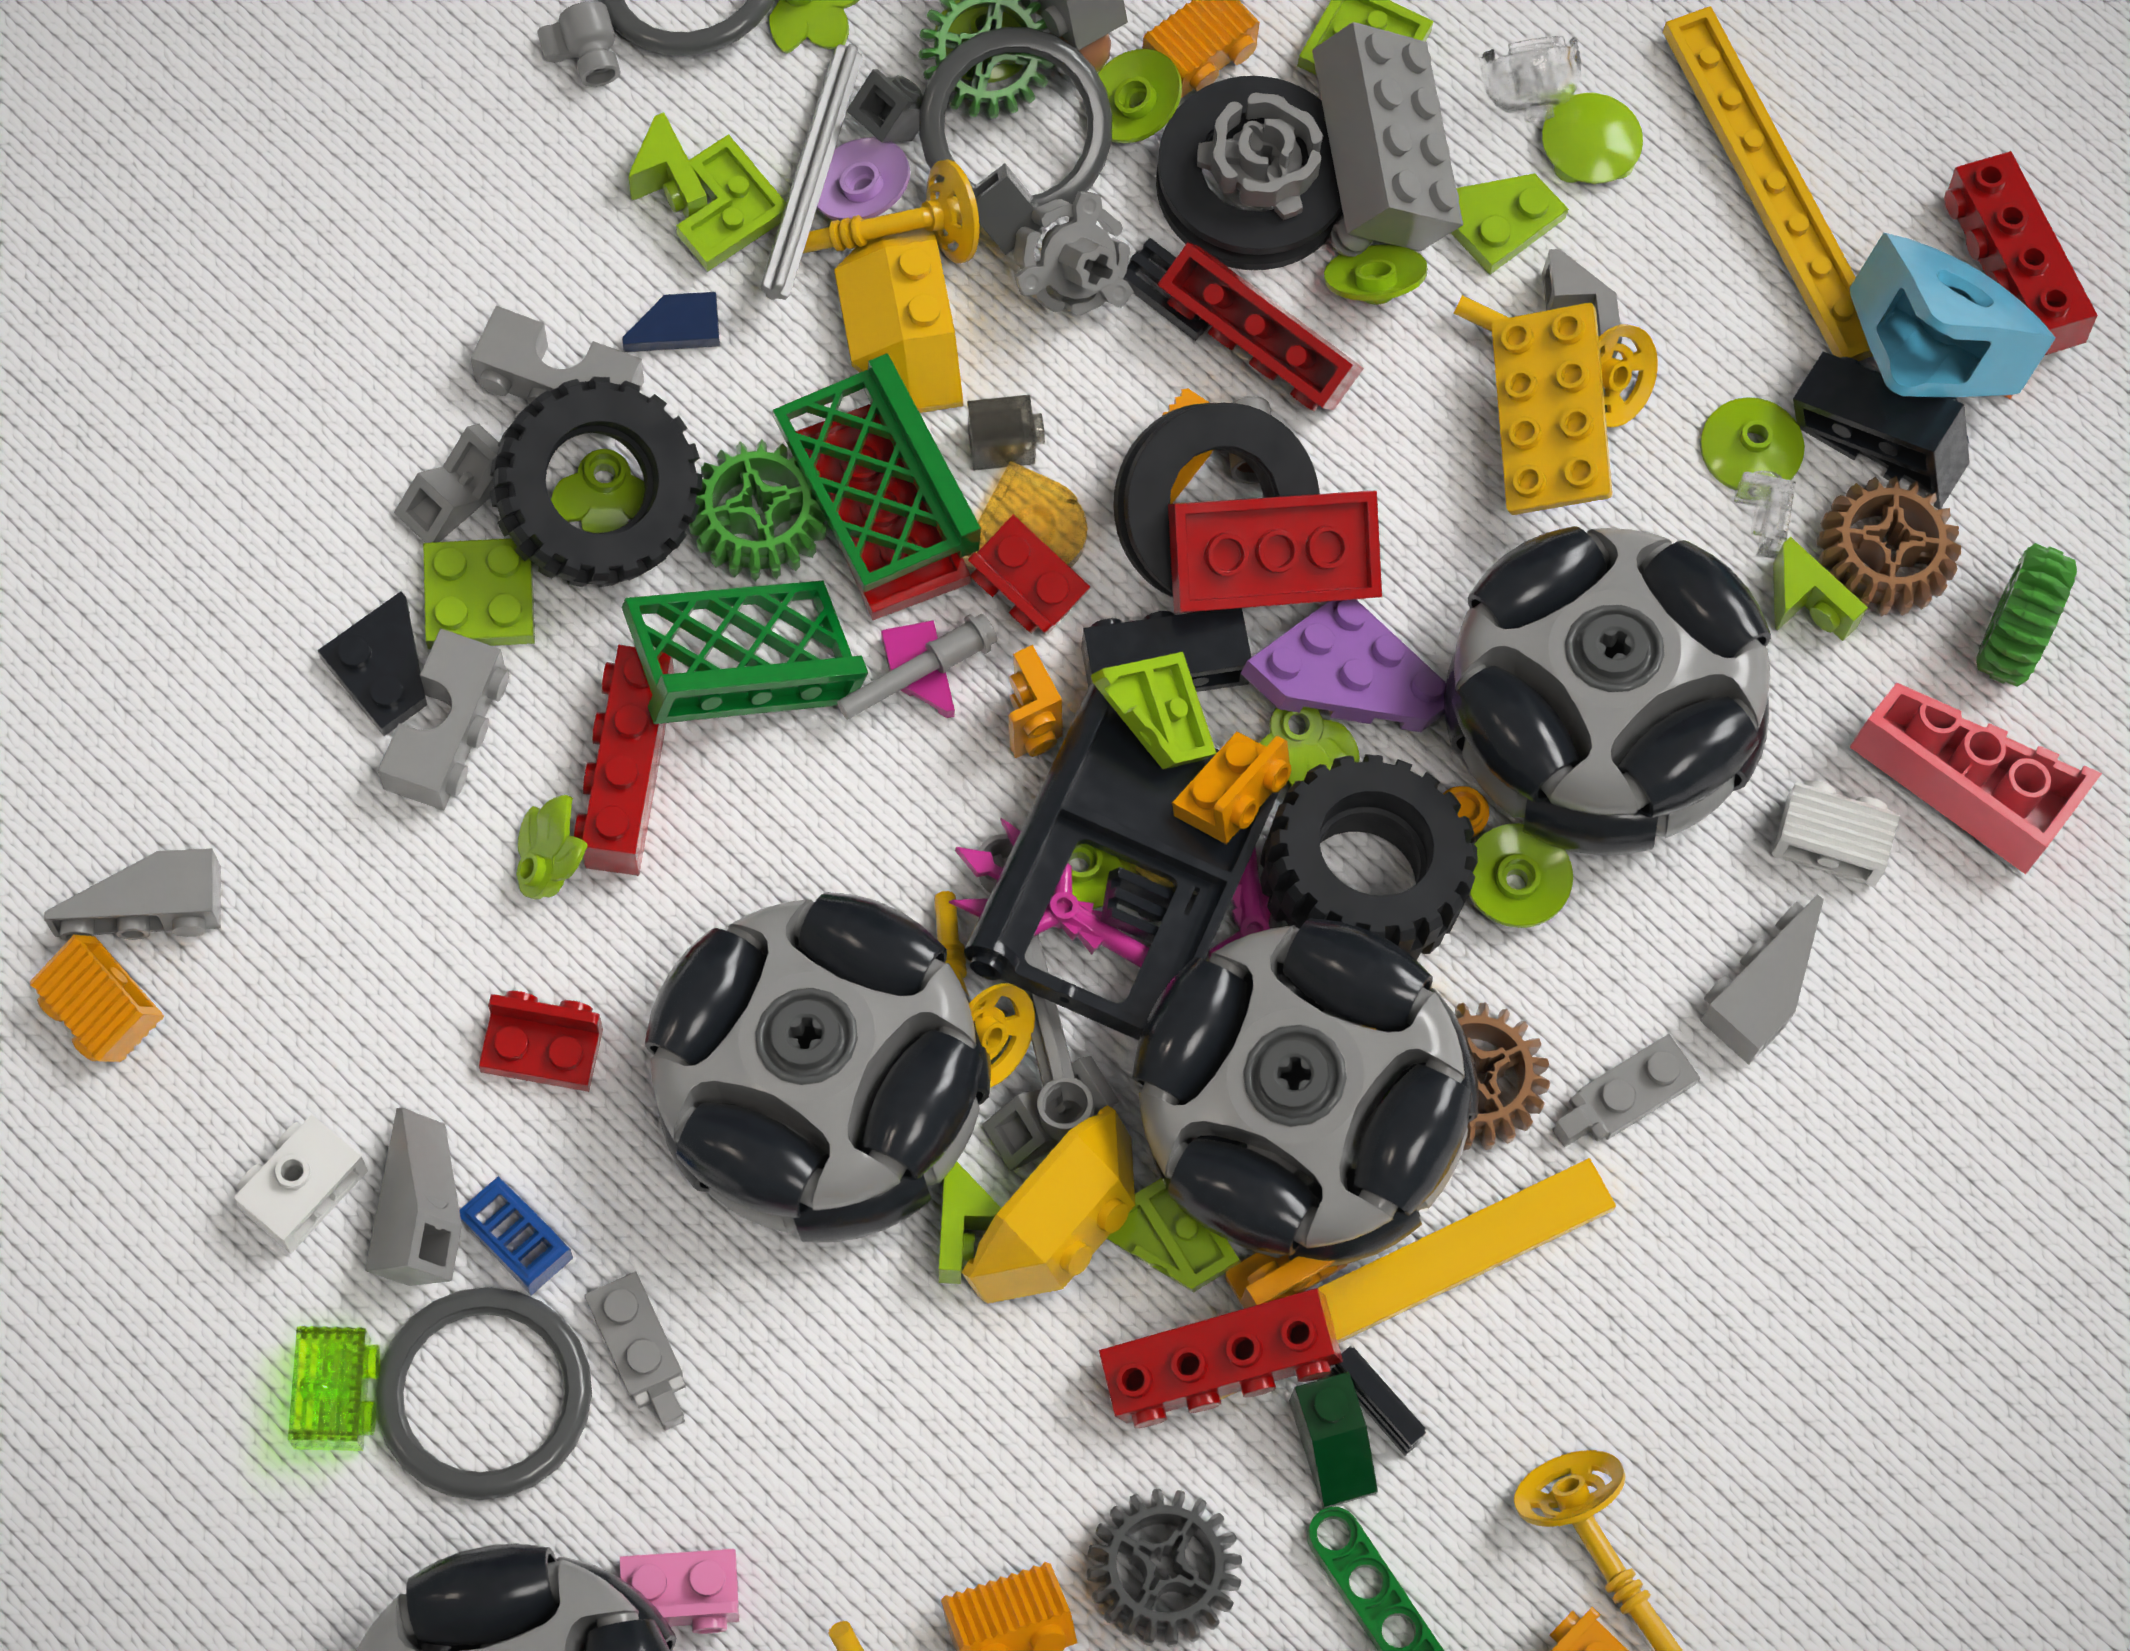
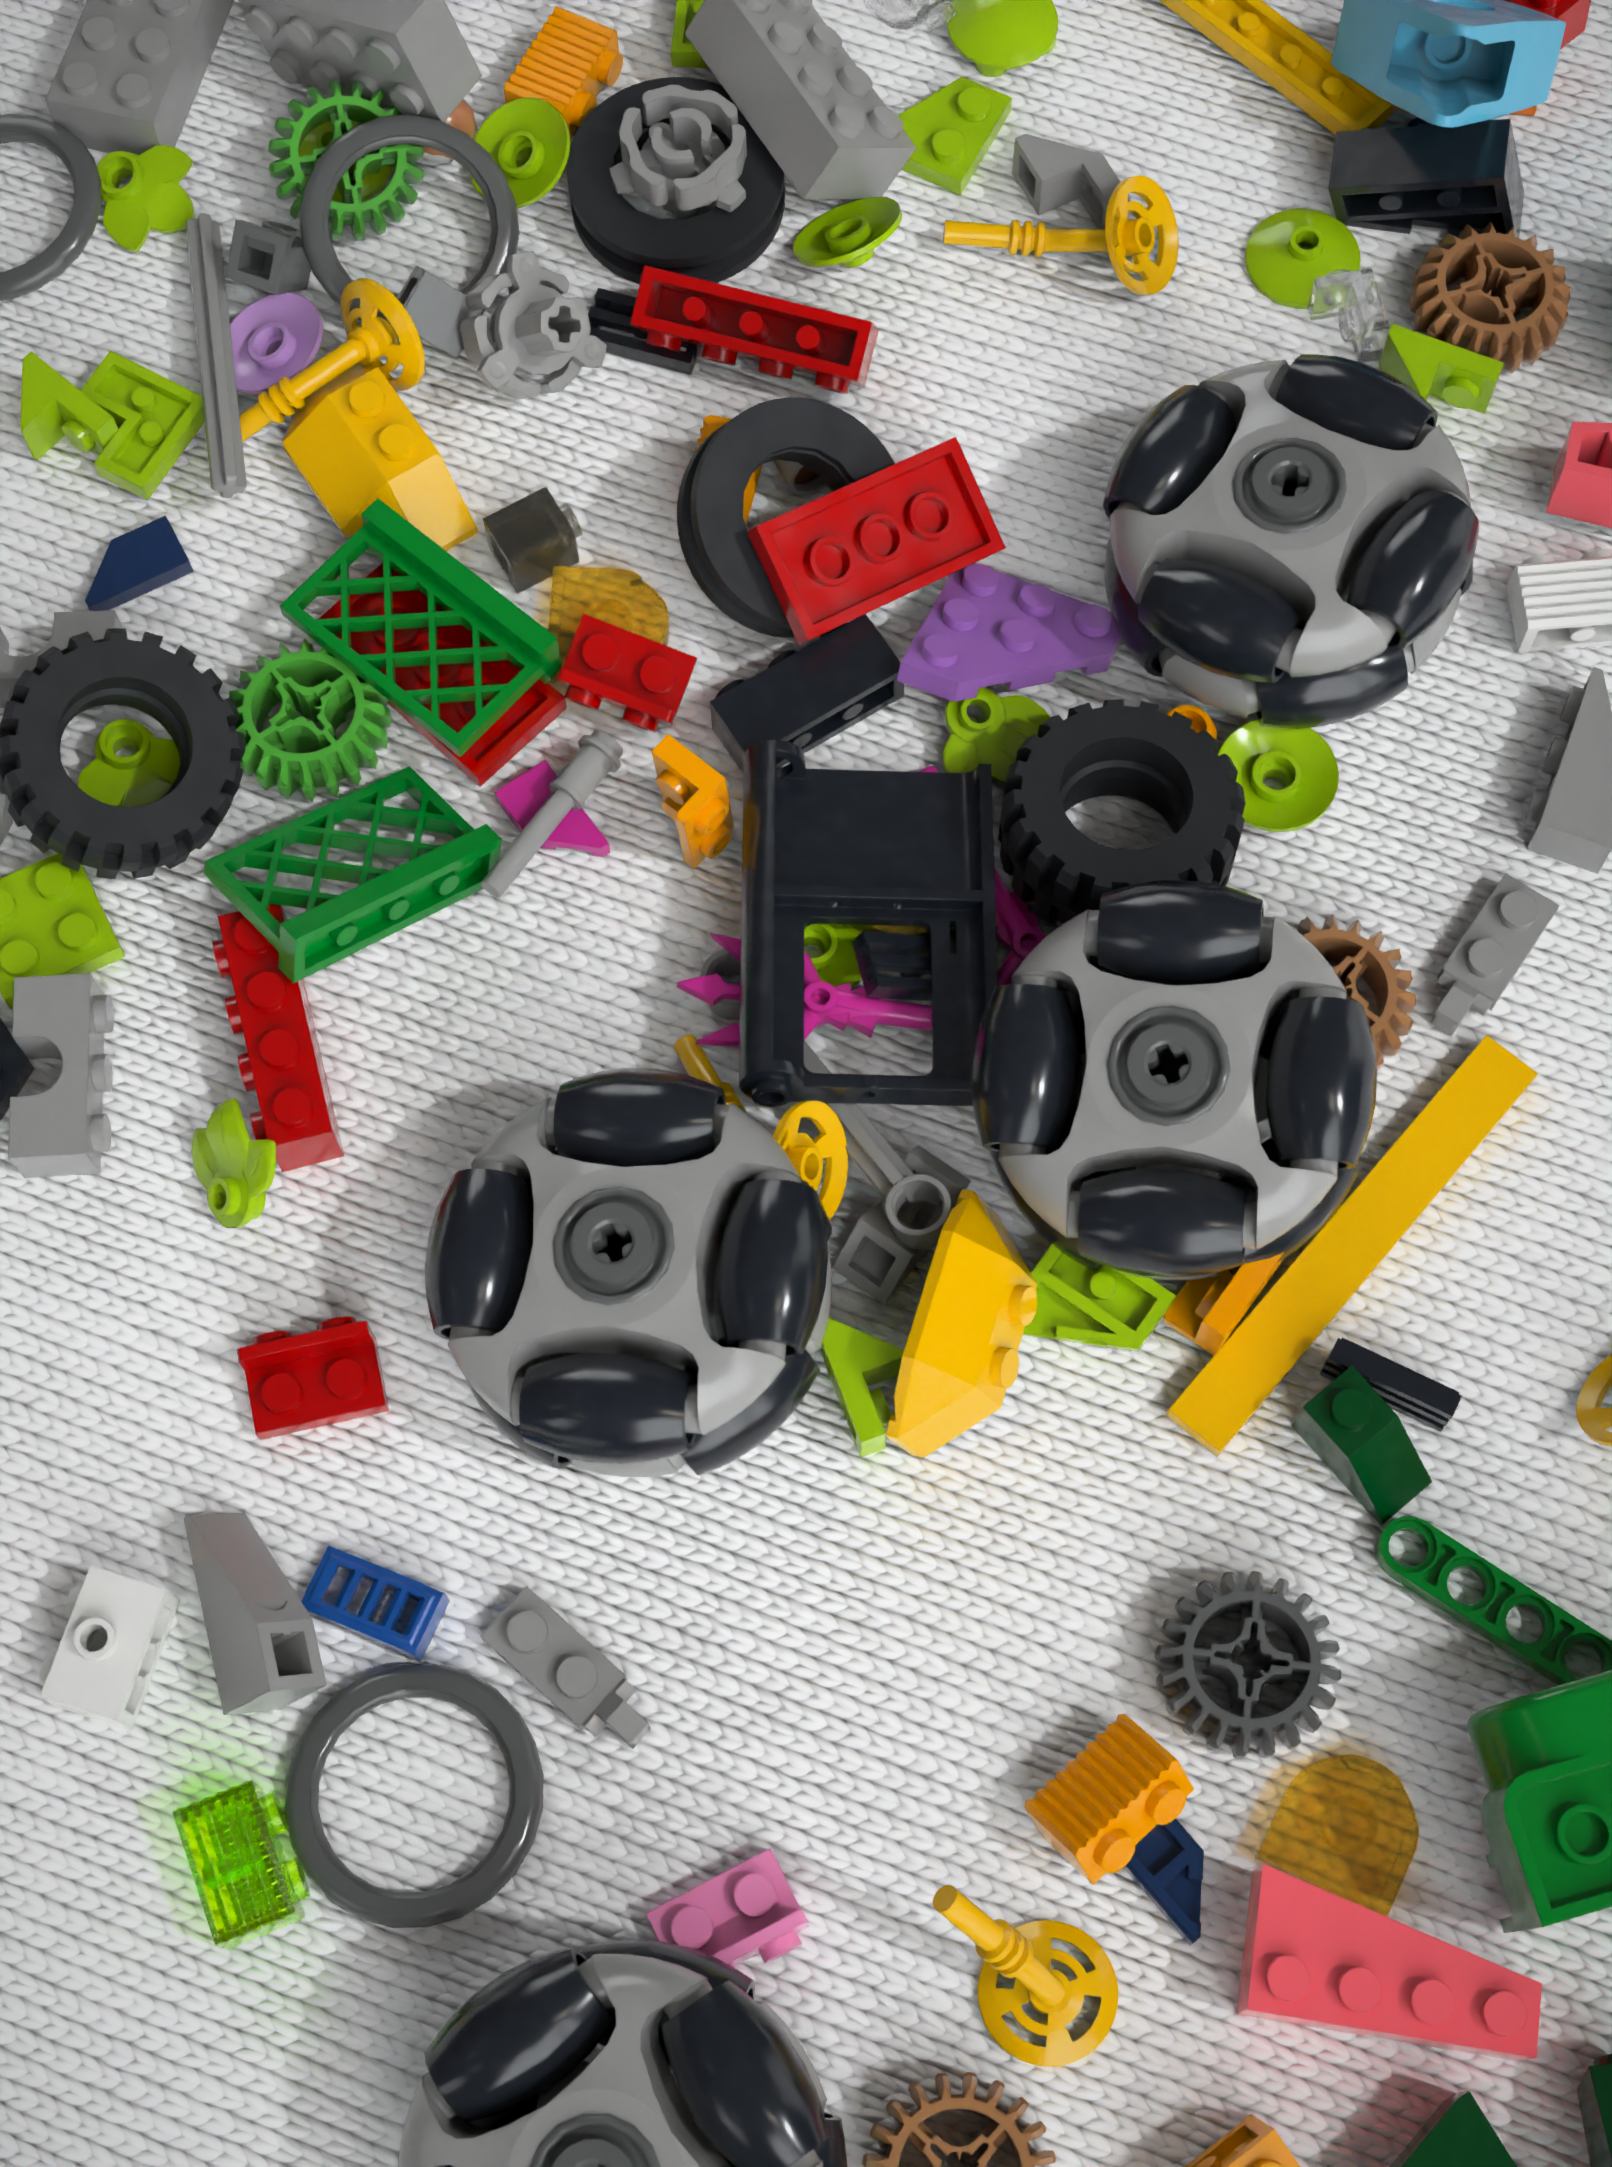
camera: 15 degrees left, 0 degrees up
(1159, 708) = (829, 748): lime wing -> none
(1221, 1357) = (1207, 1408): red brick -> none
(1234, 786) = (944, 799): light orange bracket -> none
(1344, 243) = (802, 213): light grey hinge -> none
(1551, 409) = (1095, 289): yellow bracket -> none

